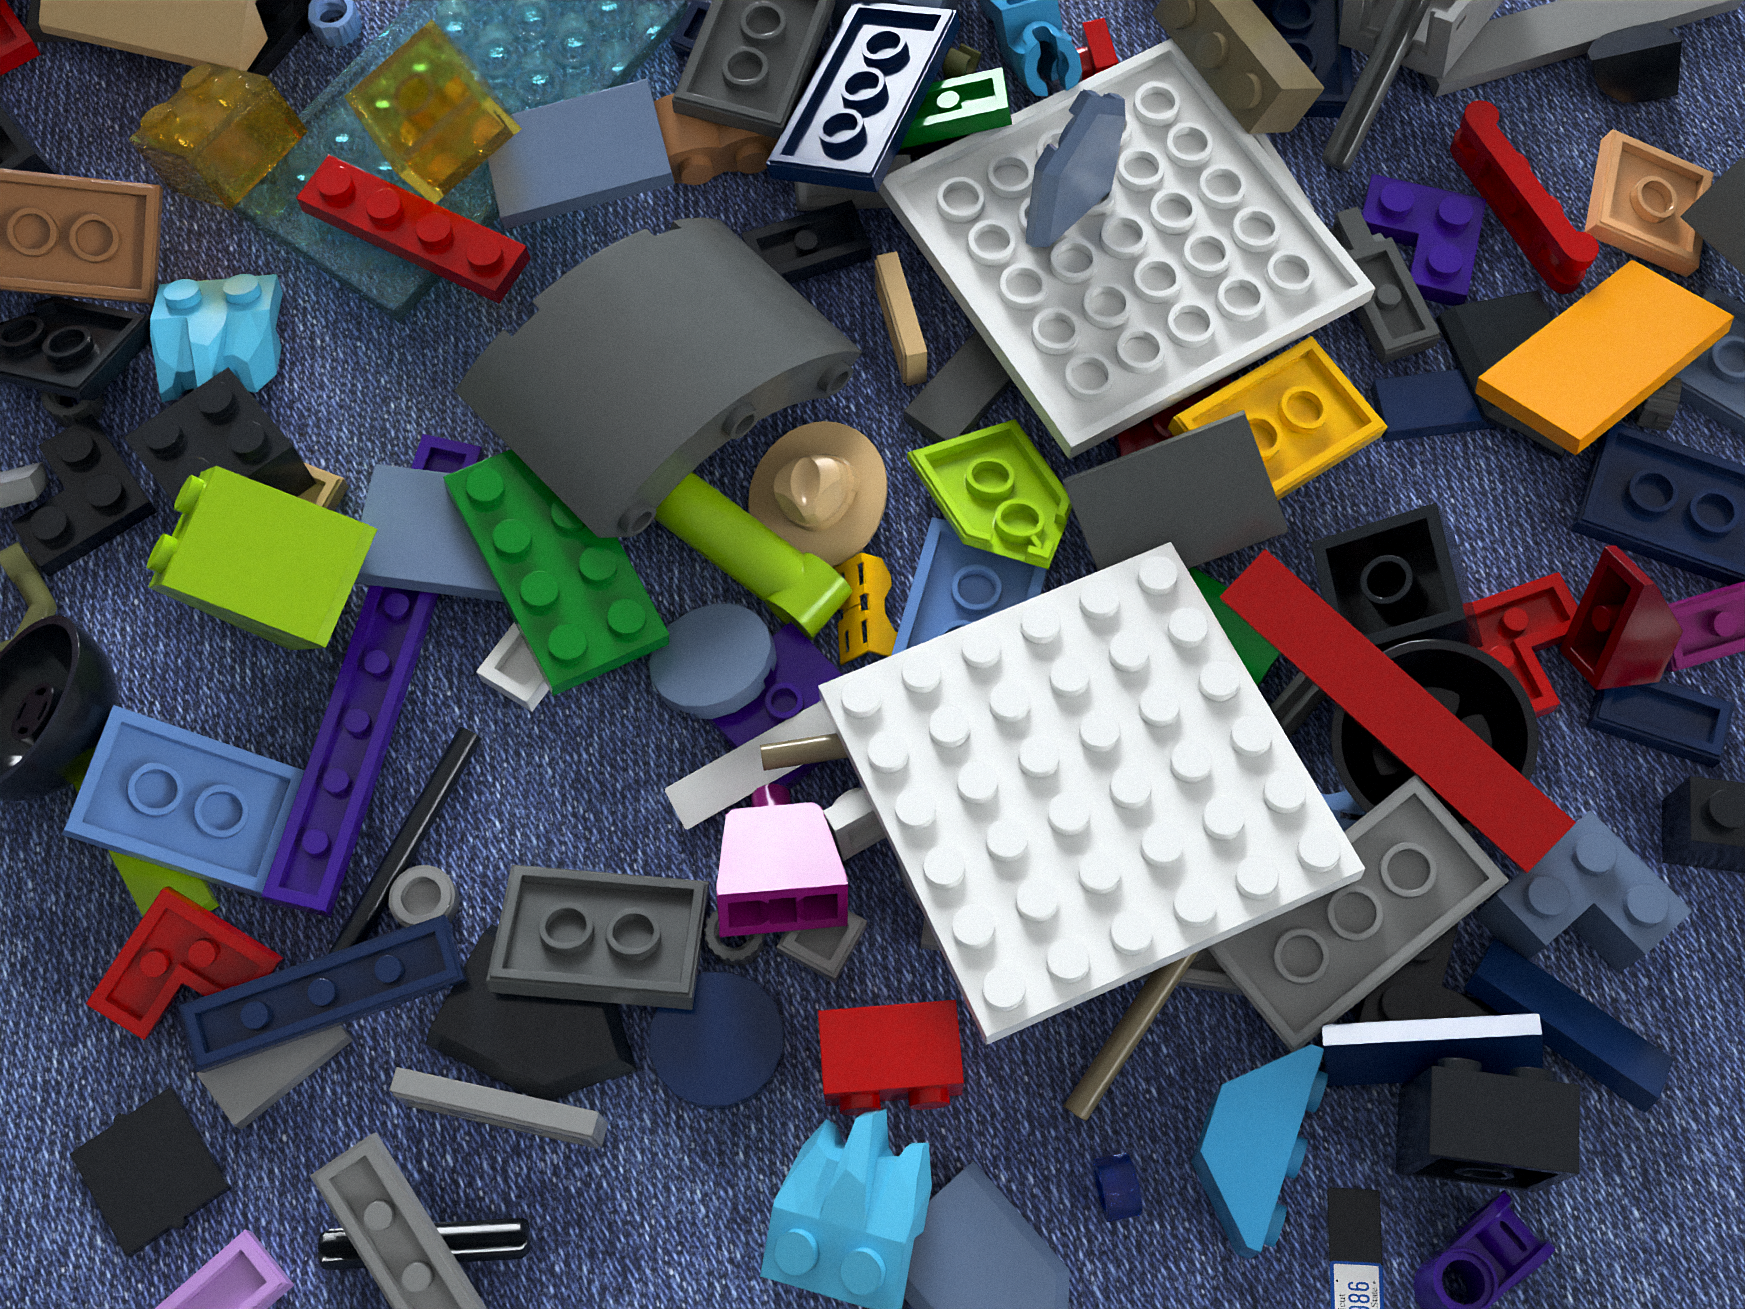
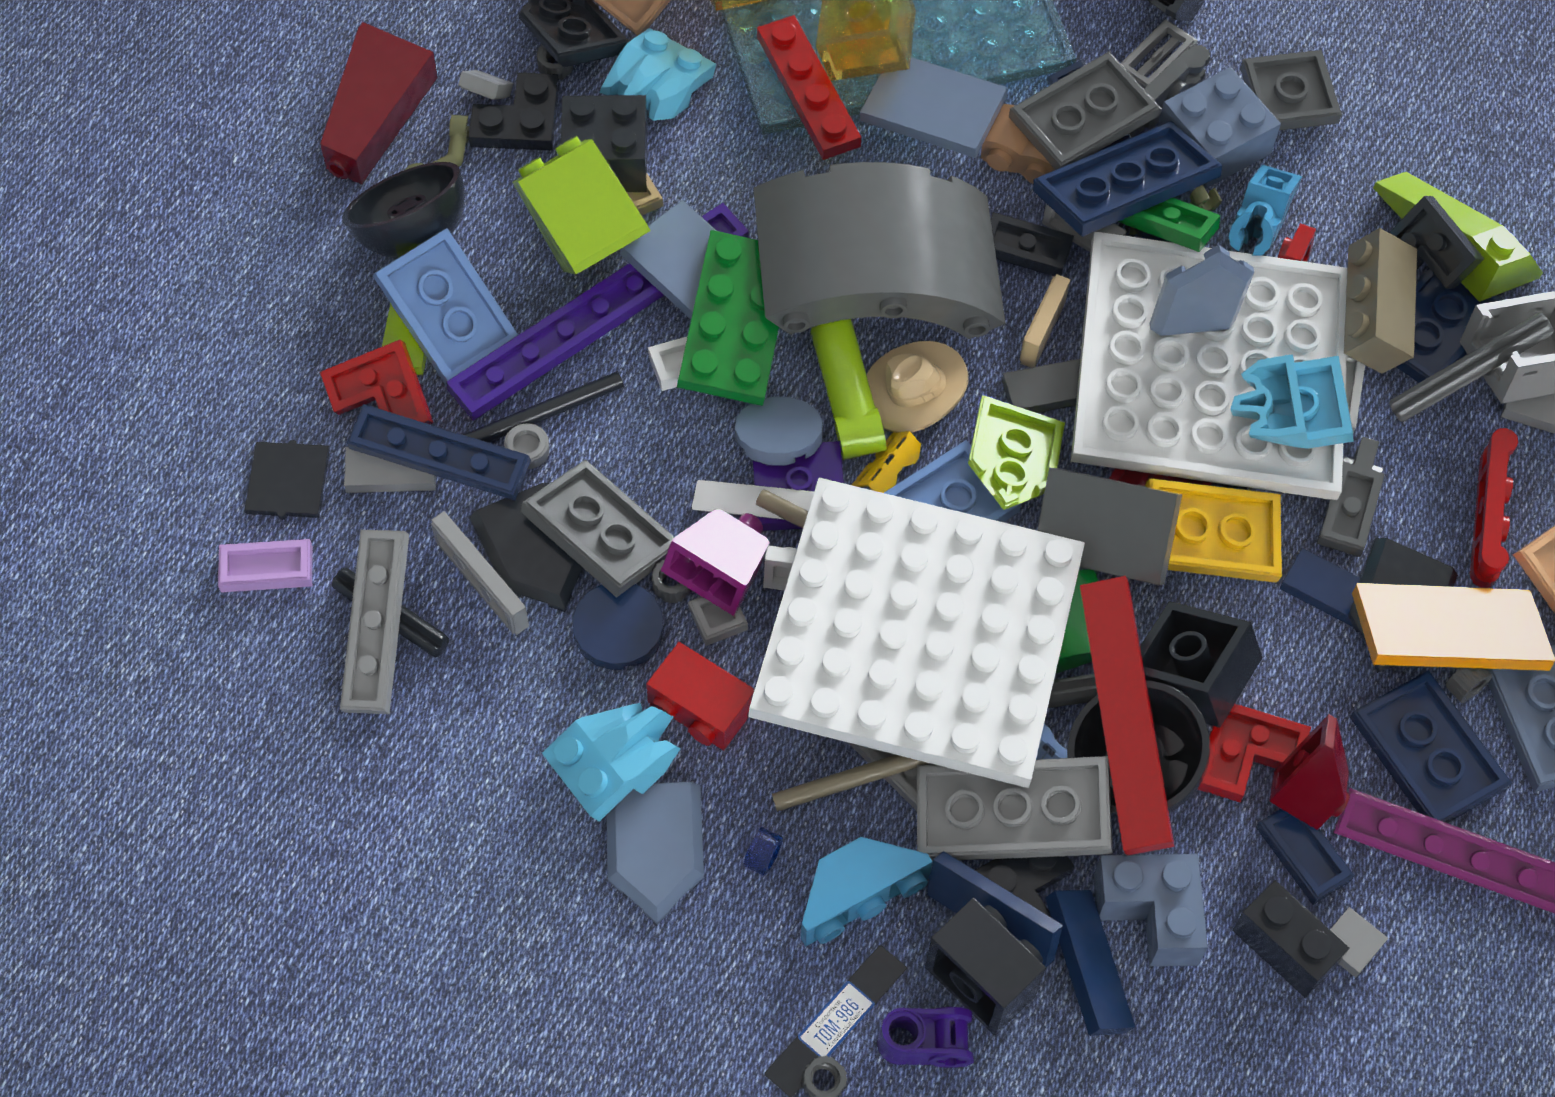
camera: 35 degrees right, 5 degrees down
(1260, 219) = (1296, 402): none -> medium azure plate
(1437, 225) = (1426, 492): dark purple plate -> none

